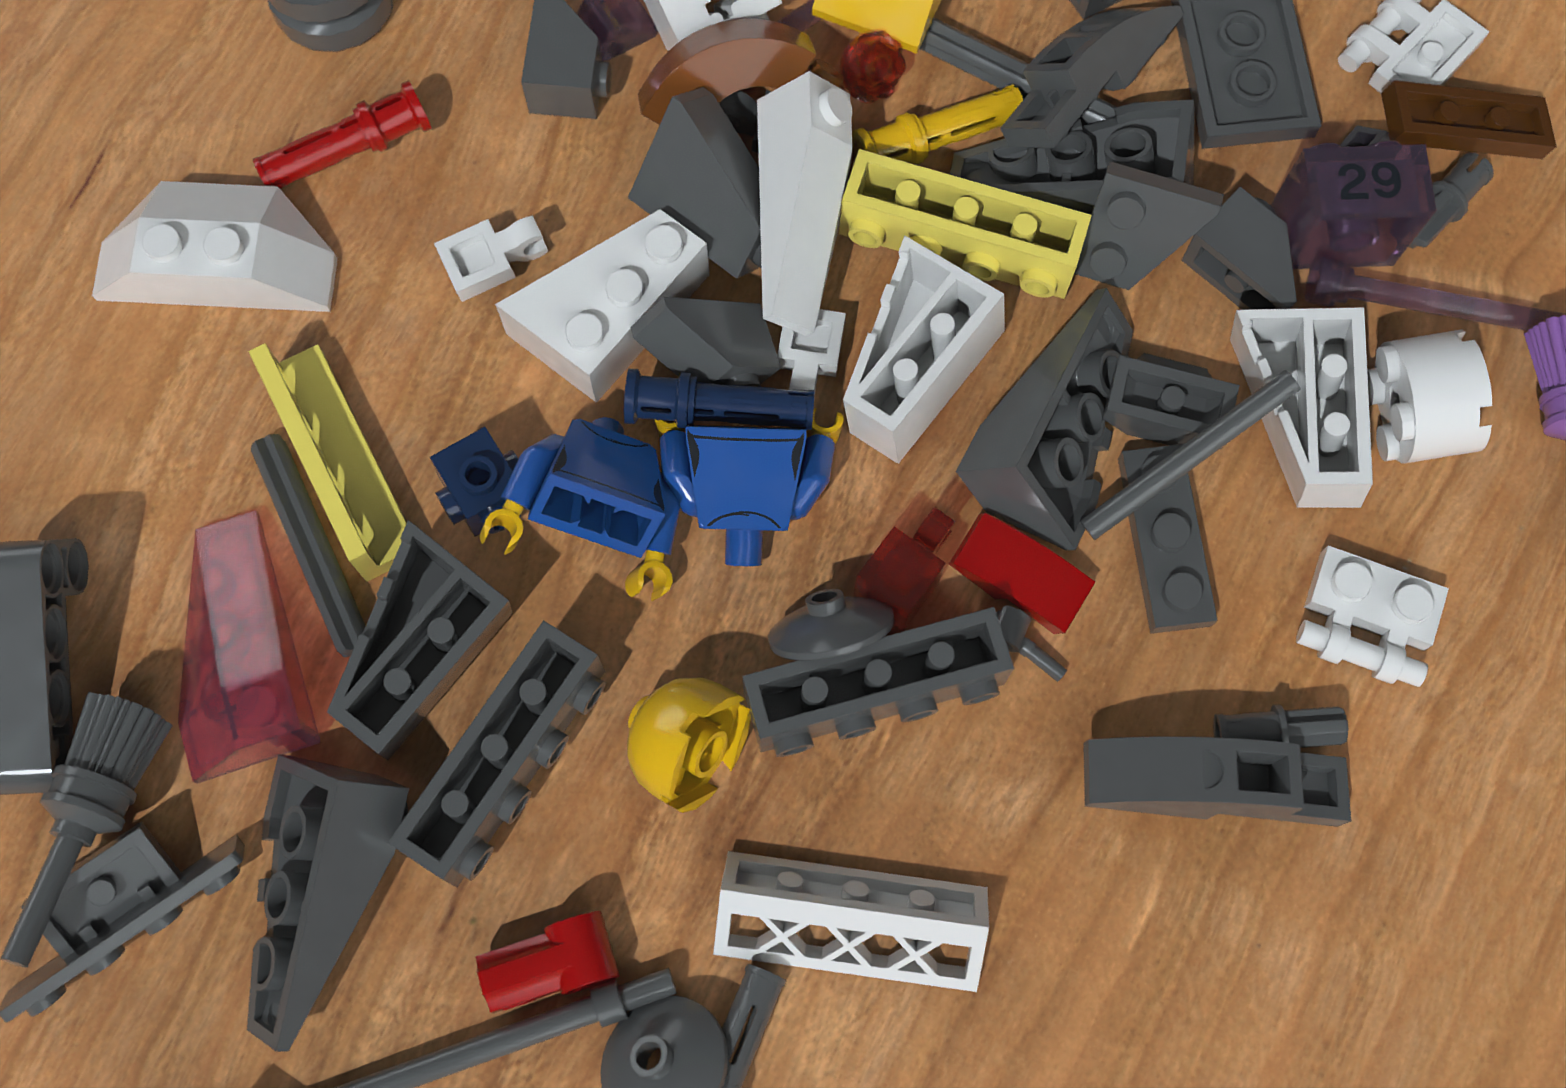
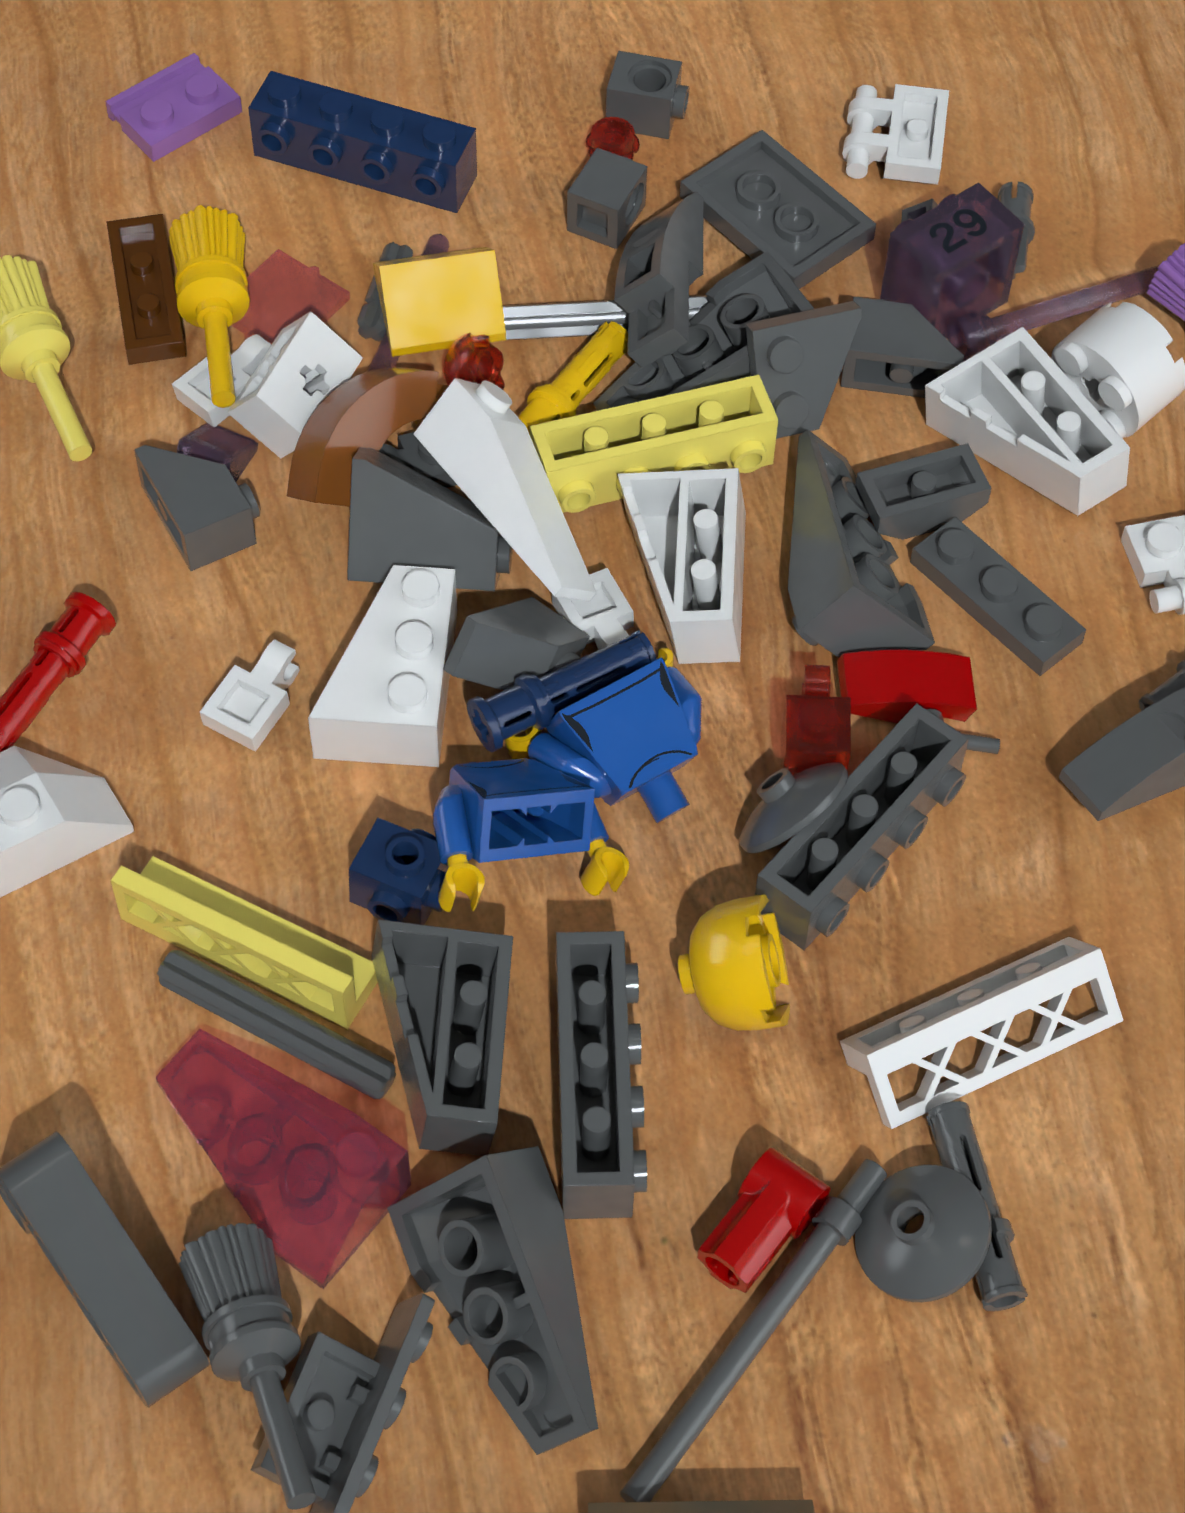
camera: 35 degrees left, 15 degrees down
(1190, 454) = (972, 514): dark grey bar -> none
(1468, 120) = (986, 158): reddish brown plate -> none

